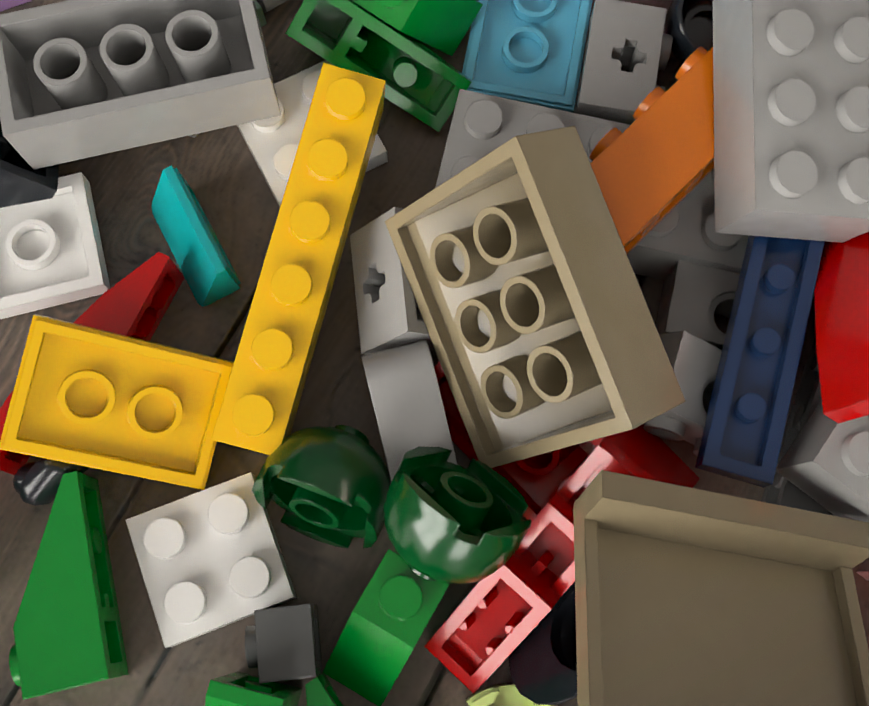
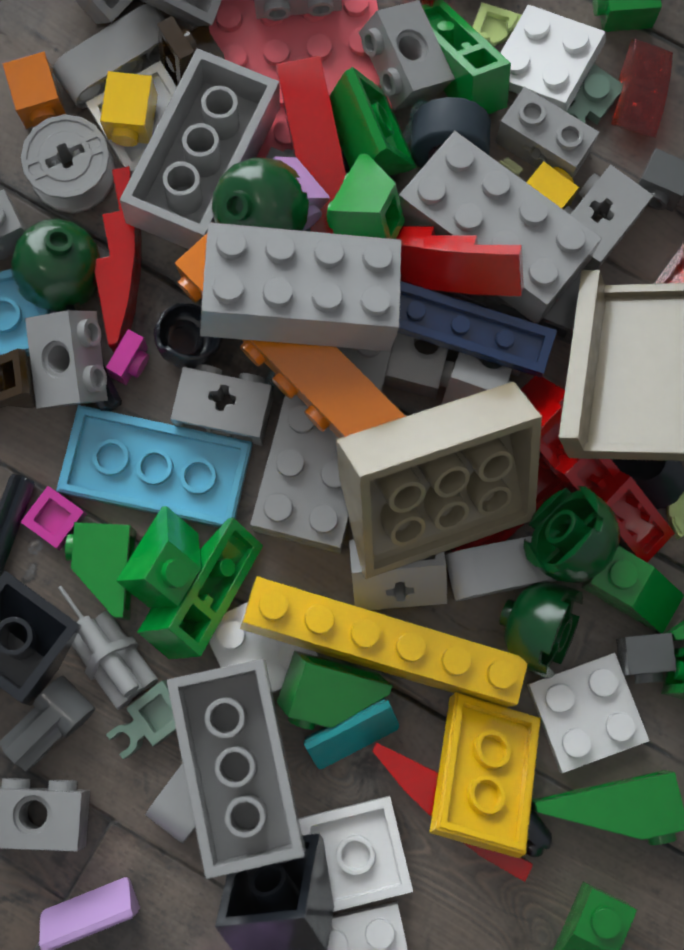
camera: 85 degrees left, 5 degrees up
(239, 198) = (327, 691): none -> green slope

